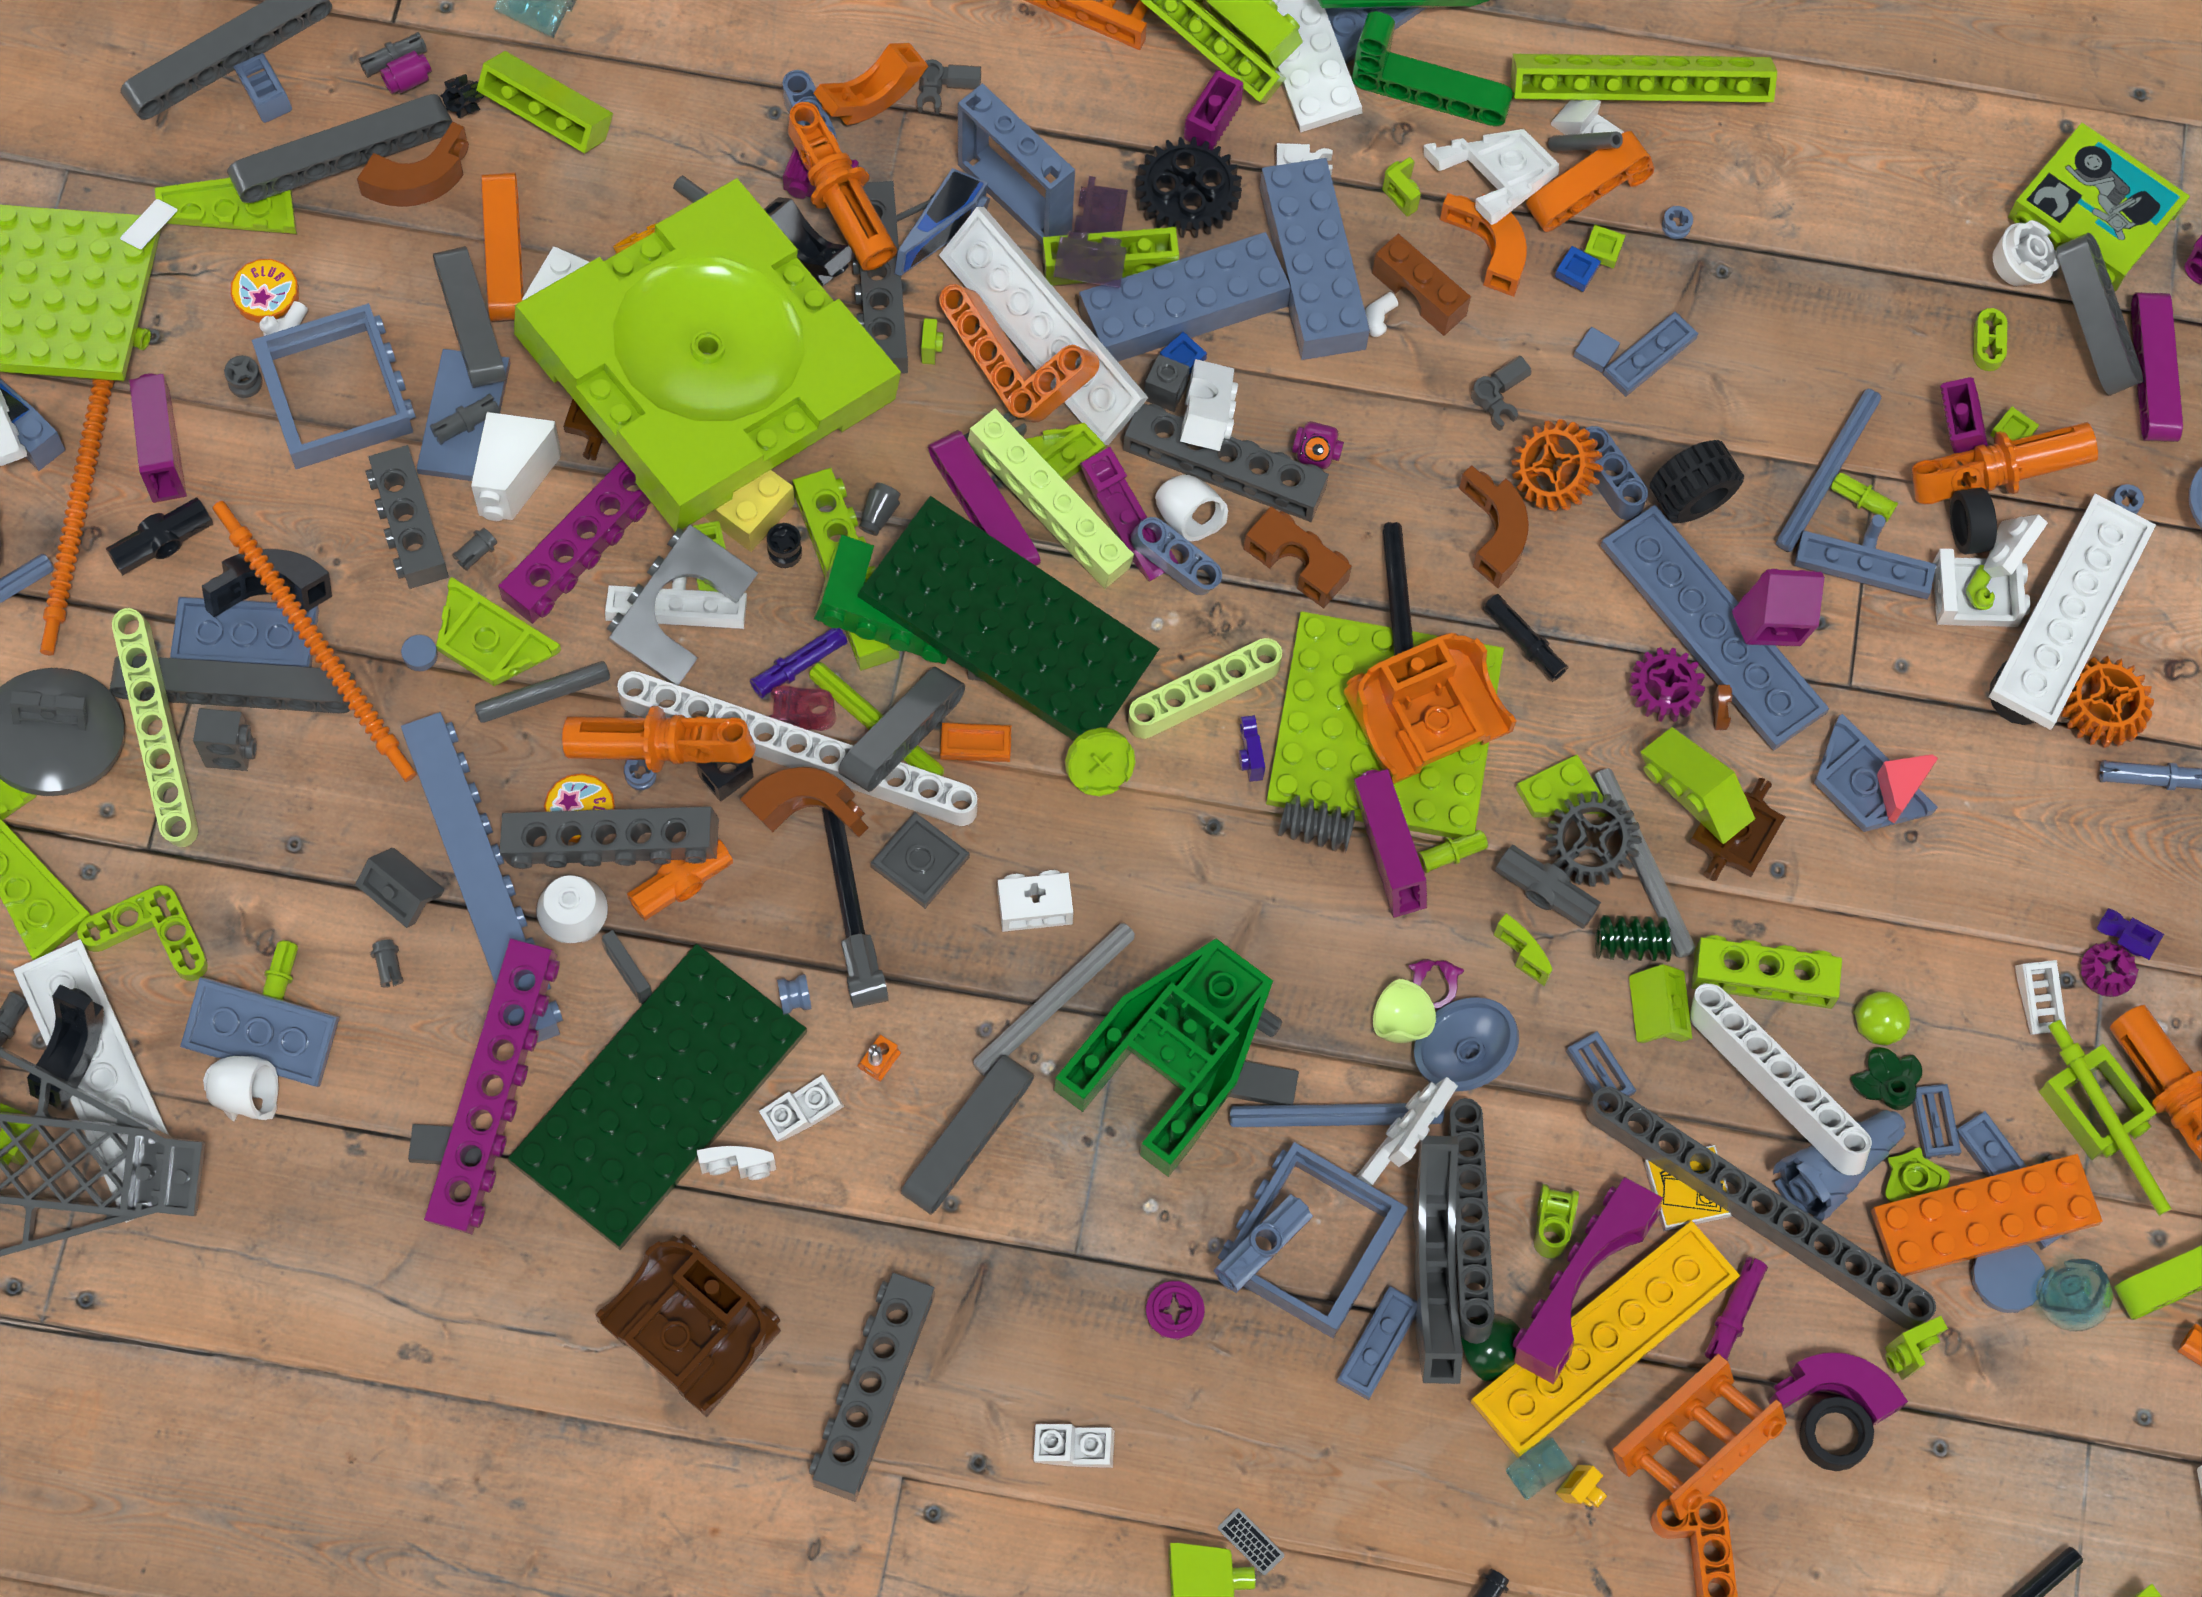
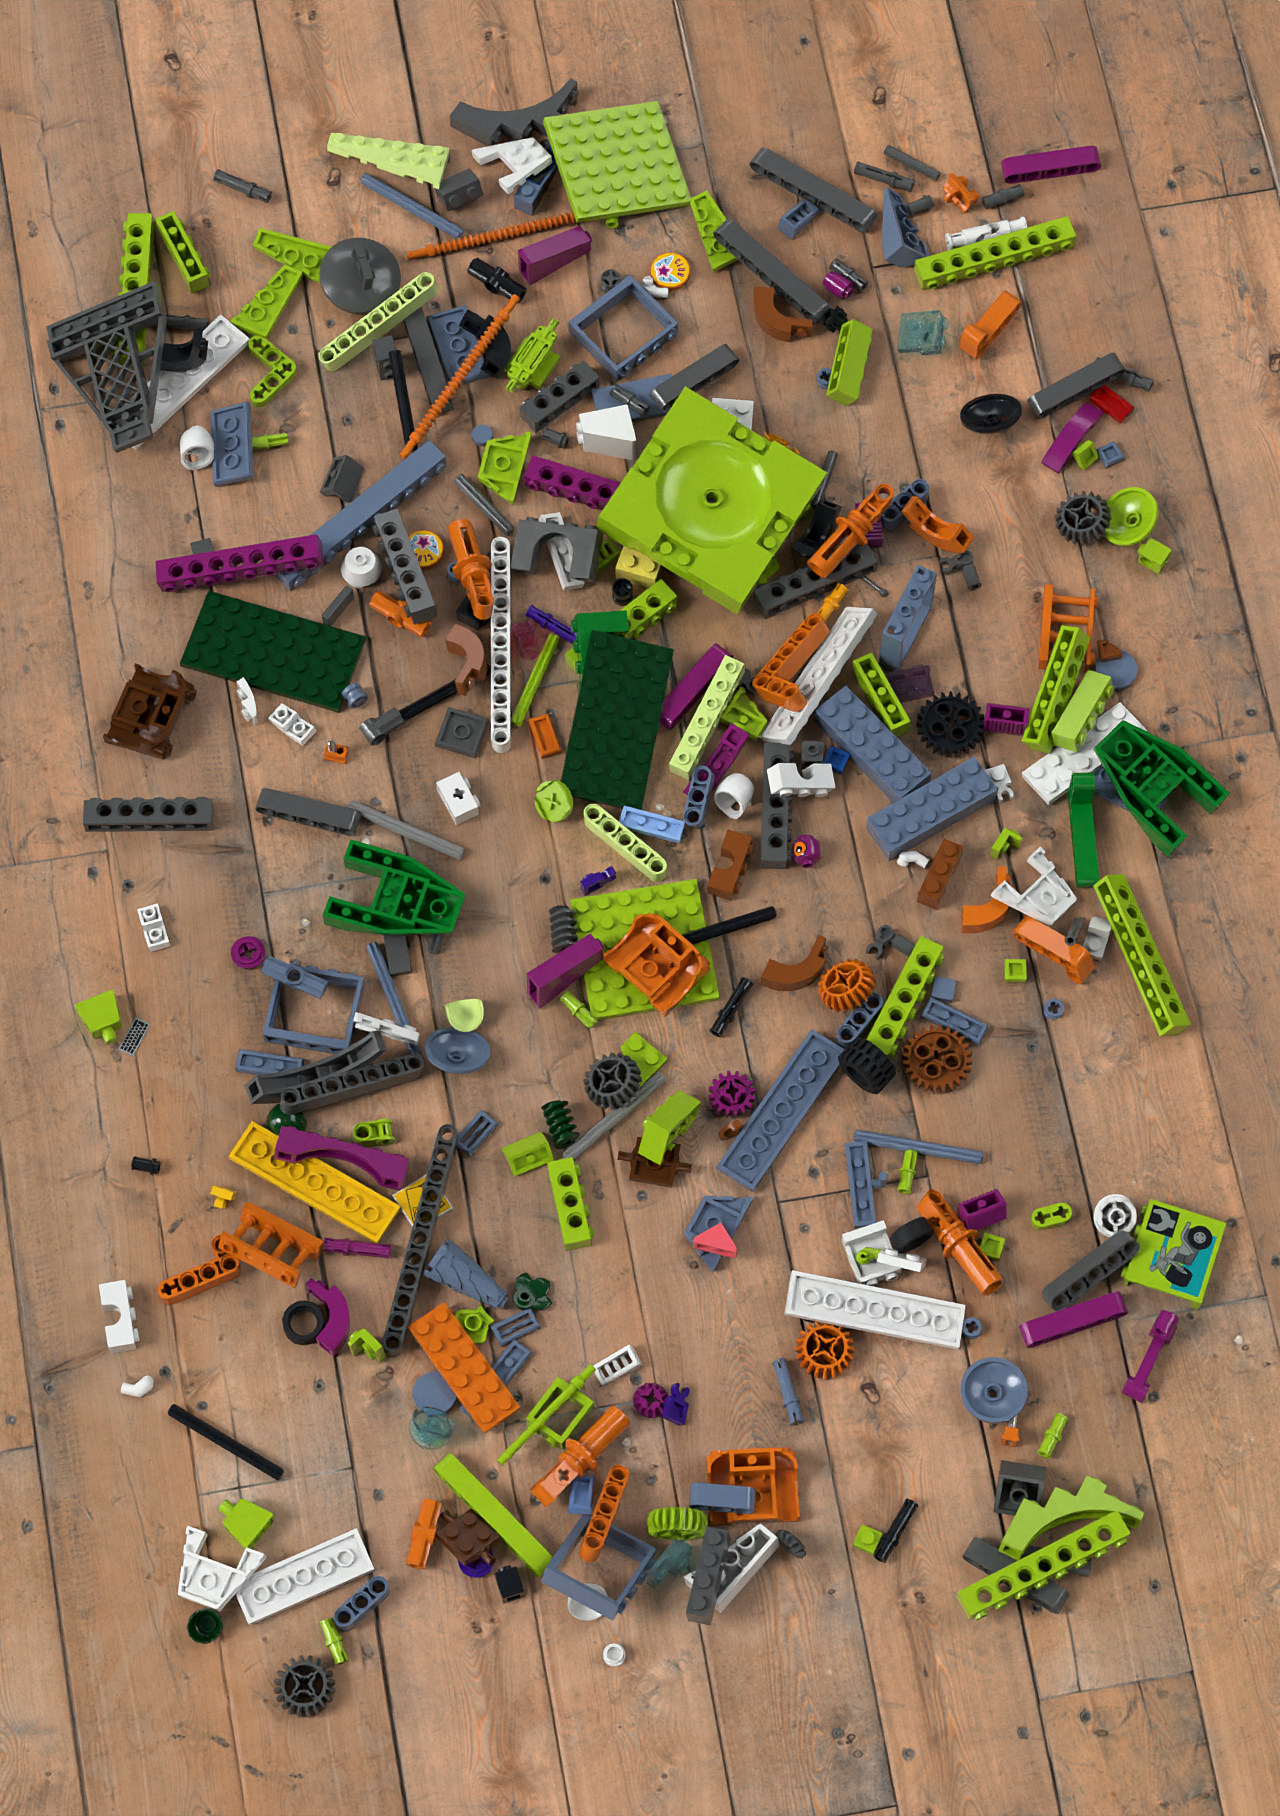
camera: 75 degrees right, 0 degrees up
(148, 224) = (681, 196): white sticker -> none
(310, 736) = (402, 395): none -> black axle
(327, 527) = (533, 359): none -> lime piece
(387, 962) = (295, 490): dark grey pin -> none
(502, 245) = (751, 376): orange beam -> none
(557, 153) = (822, 383): none -> sand blue bush
(879, 507) = (668, 632): dark grey cone -> none
(901, 729) = (528, 689): dark grey beam -> none
(928, 274) = (832, 602): none -> light orange pin
(931, 341) = (785, 621): lime plate -> none
(942, 218) = (861, 595): slope -> none
(1090, 260) = (864, 680): bracket -> none
(1188, 640) = (652, 824): none -> light blue plate
(1450, 973) = (502, 1032): magenta piece -> none
(1531, 957) = (529, 1070): lime slope -> none
(1539, 1468) = (227, 1170): clear light blue bracket -> none
(1547, 886) = (575, 1067): dark grey piece -> none
(1577, 268) = (992, 960): blue plate -> none
(1579, 398) = (923, 951): none -> lime brick
(1736, 393) = (946, 1075): none -> dark orange gear
(1780, 1079) = (491, 1228): white beam -> none
(1781, 608) = (801, 1137): magenta slope -> none
(1882, 1018) = (568, 1278): lime hair -> none

